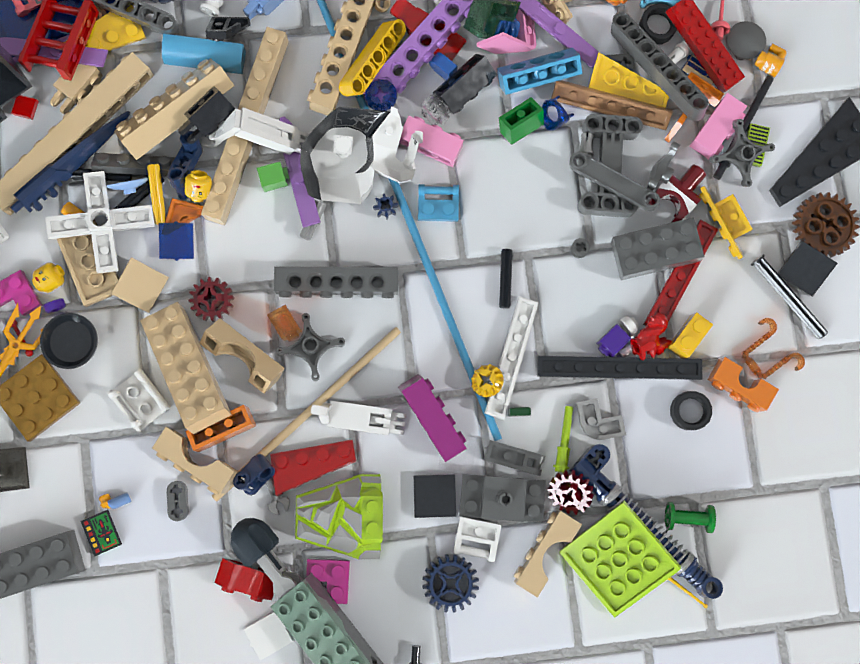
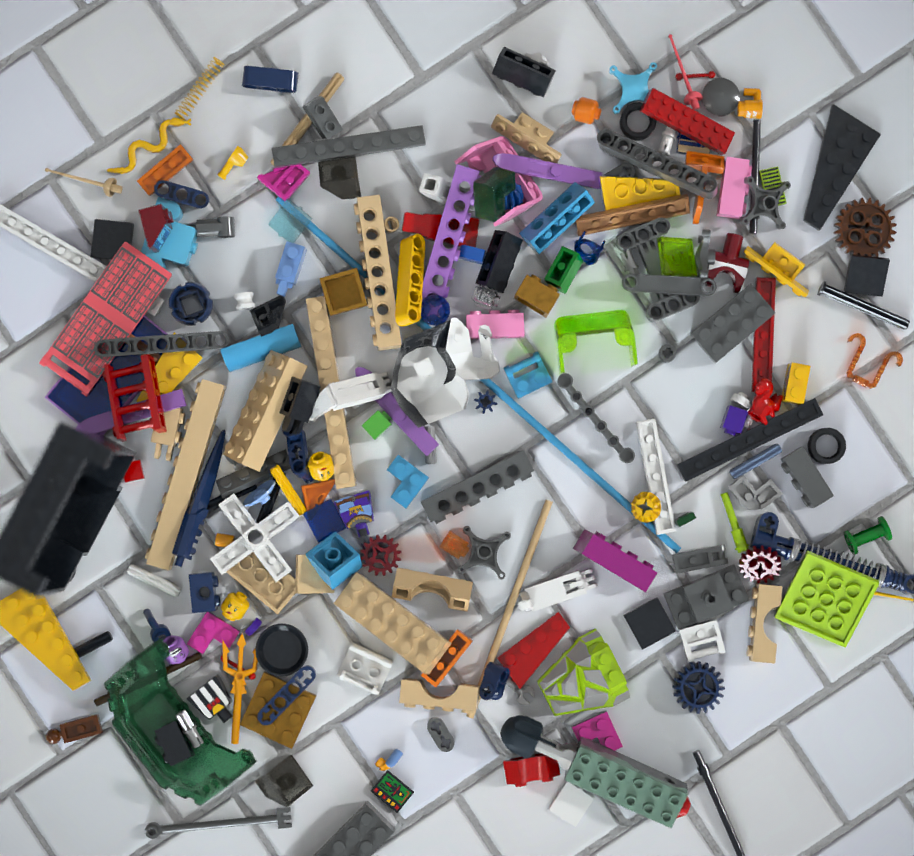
camera: 20 degrees left, 5 degrees up
(22, 239) = (201, 603): none -> dark blue brick
(49, 387) = (287, 695): none -> dark blue beam
(164, 281) = (334, 560): none -> dark azure slope
(210, 247) = (356, 511): none -> torso
(275, 246) = (411, 479): none -> dark azure brick
(305, 39) = (343, 292): none -> pearl gold piece
(470, 223) = (565, 381): none -> dark grey bar
(484, 130) = (537, 295): none -> pearl gold piece
(501, 177) = (616, 321): none -> clear neon green windscreen
(505, 278) = (617, 411): black axle -> none
(615, 391) = (755, 461): none -> sand blue axle
(634, 160) = (677, 257): none -> clear neon green tile
(656, 431) = (806, 477): none -> dark grey brick
(716, 5) = (711, 74): none -> red hinge
(726, 376) = (876, 404): orange arch -> none

